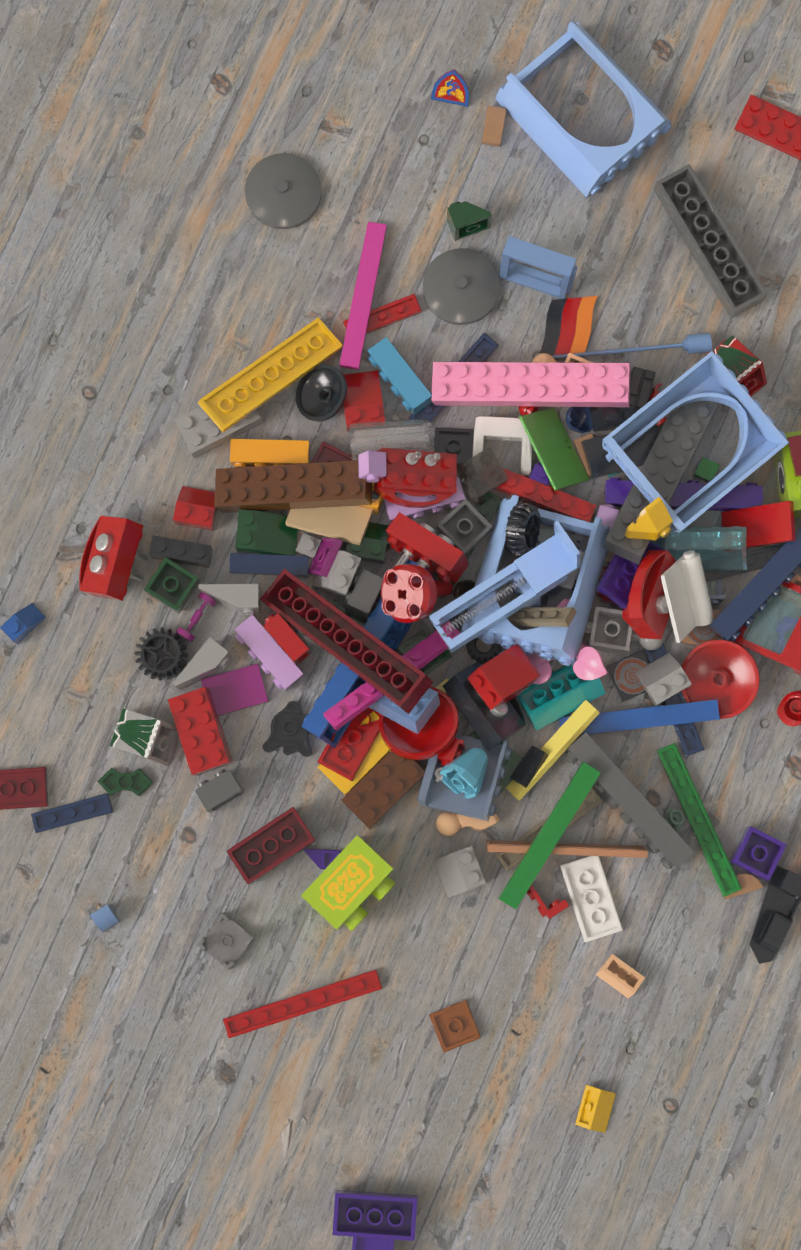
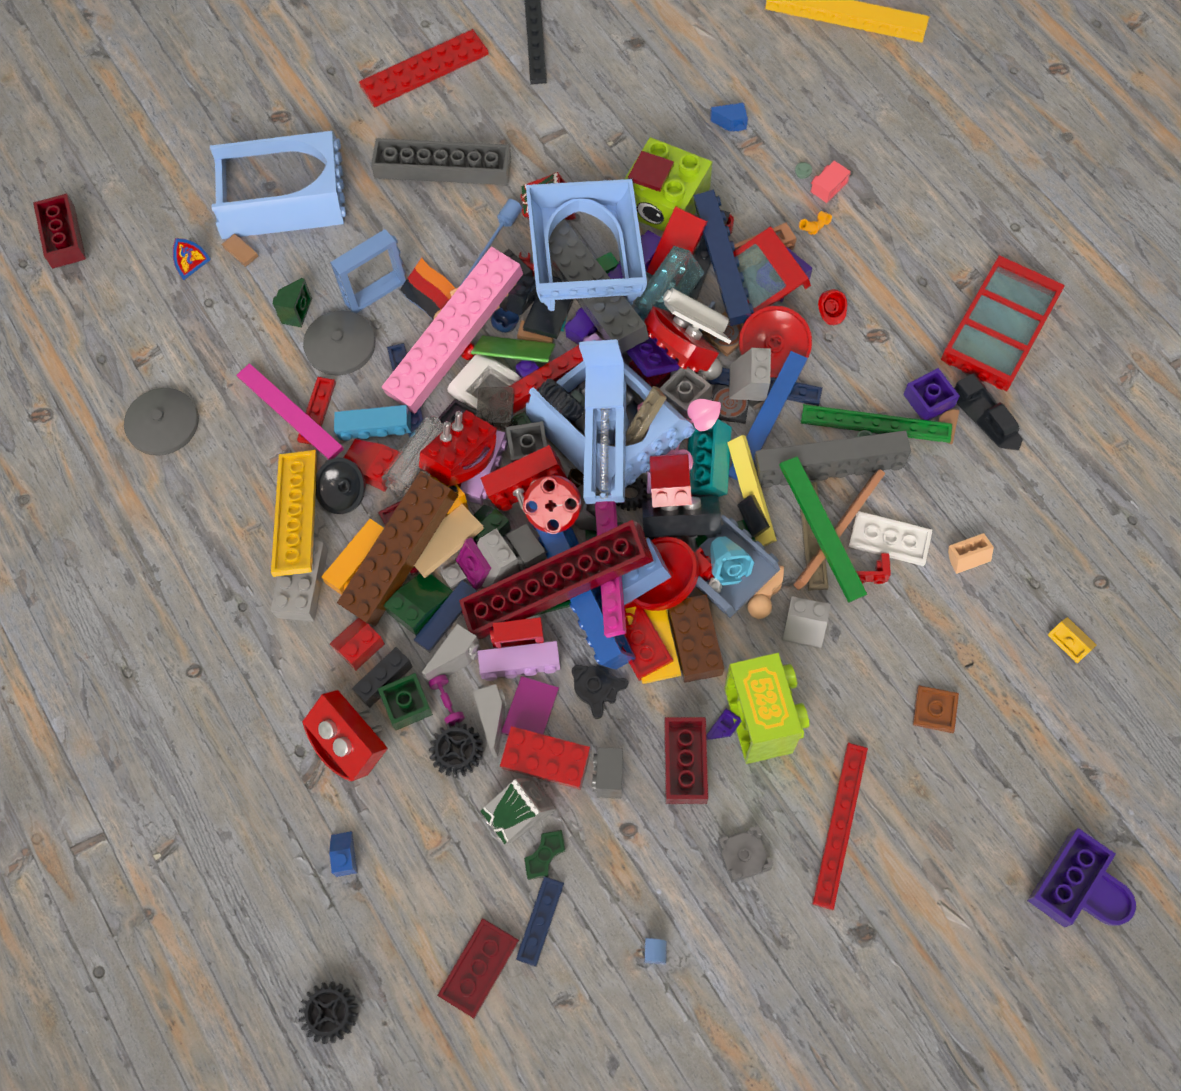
camera: 55 degrees left, 15 degrees down
(372, 465) = (429, 465): lavender brick -> none
(652, 522) = (626, 297): yellow slope -> none

